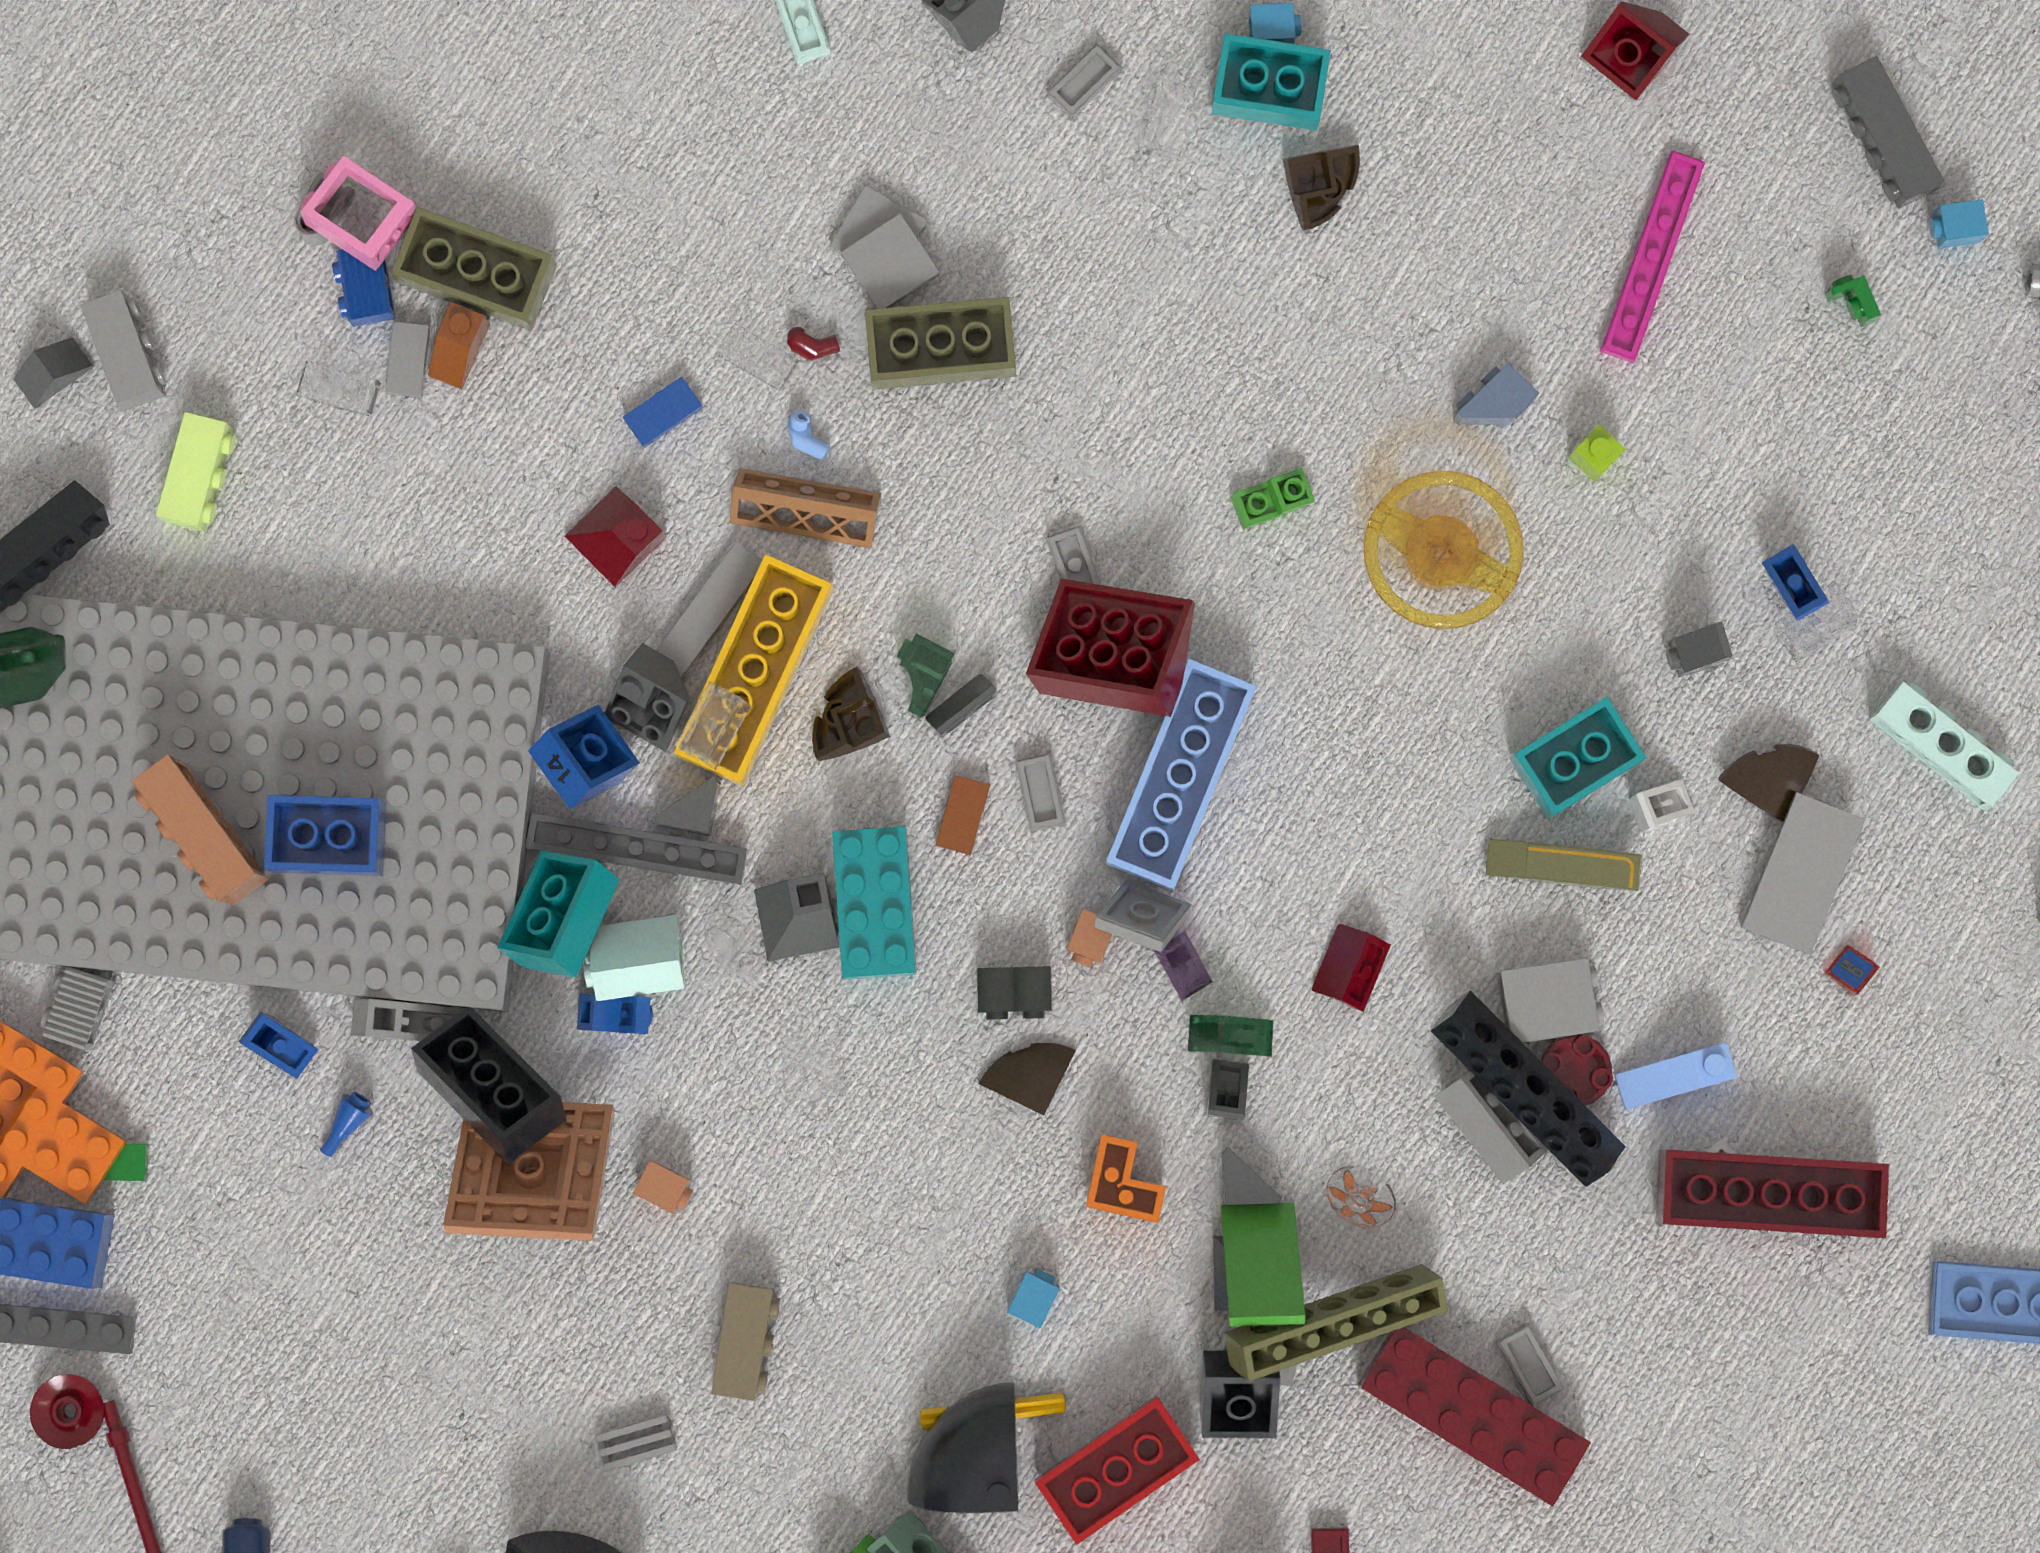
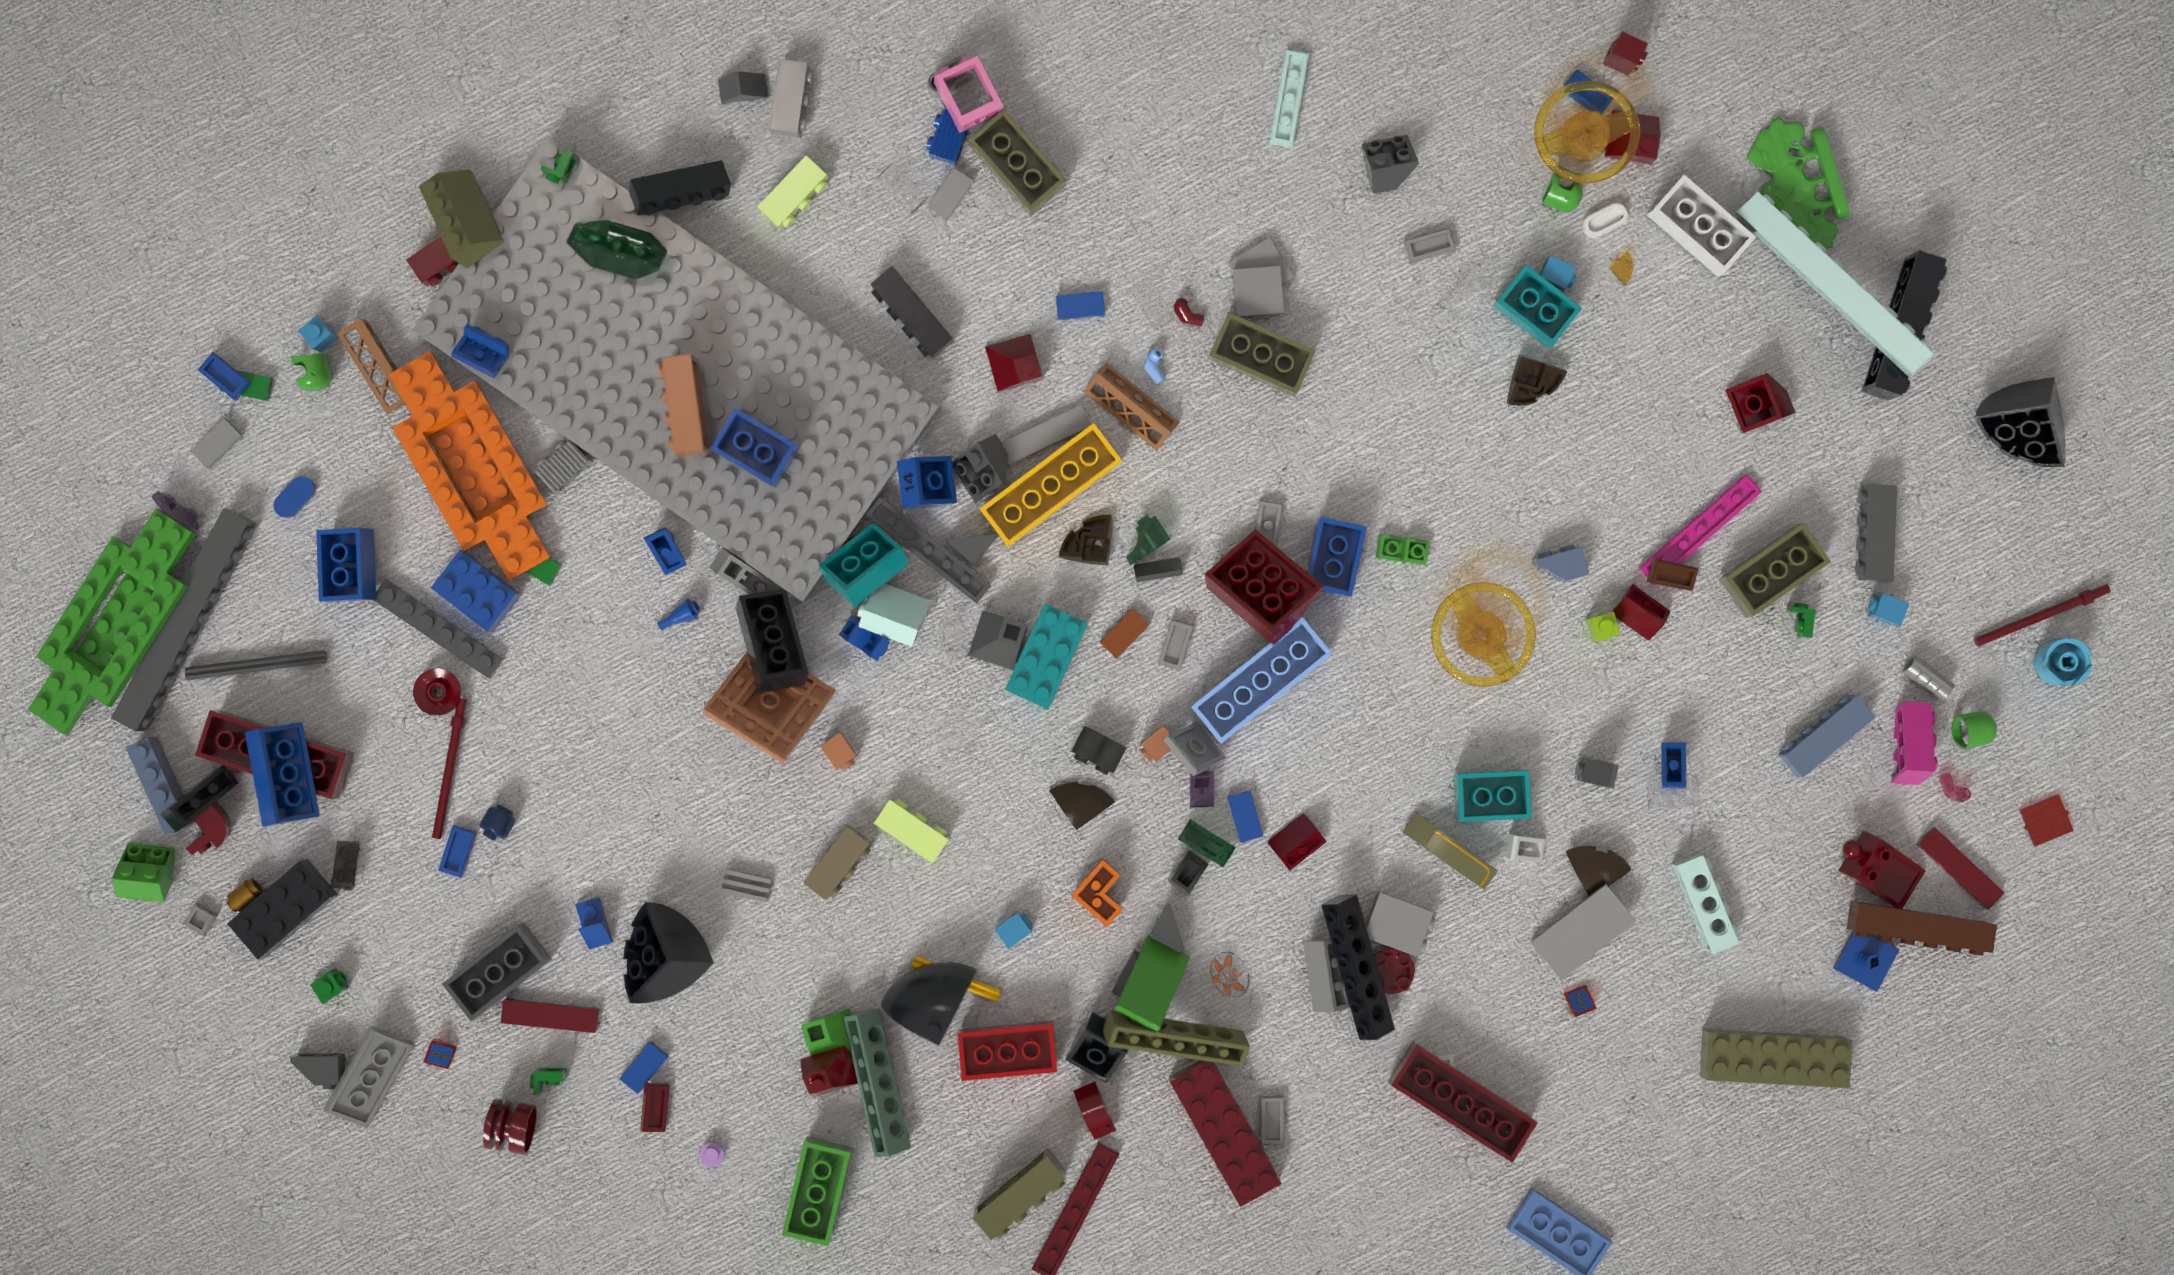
camera: 30 degrees right, 5 degrees up
(442, 544) = (912, 312): none -> black brick
(457, 345) = (983, 201): dark orange slope -> none
(712, 725) = (1009, 506): clear hinge -> none
(821, 1238) = (912, 829): none -> yellowish green brick
(1188, 552) = (1336, 555): none -> blue brick
(1262, 971) = (1245, 816): none -> blue tile
(1281, 1486) = (1094, 1110): none -> dark red brick
(1637, 407) = (1641, 612): none -> dark red panel
(1649, 334) = (1672, 574): none -> reddish brown tile
(1675, 1075) = (1446, 1005): light blue slope -> none
(1781, 253) = (1775, 570): none -> olive brick
(1975, 434) = (1827, 735): none -> sand blue brick

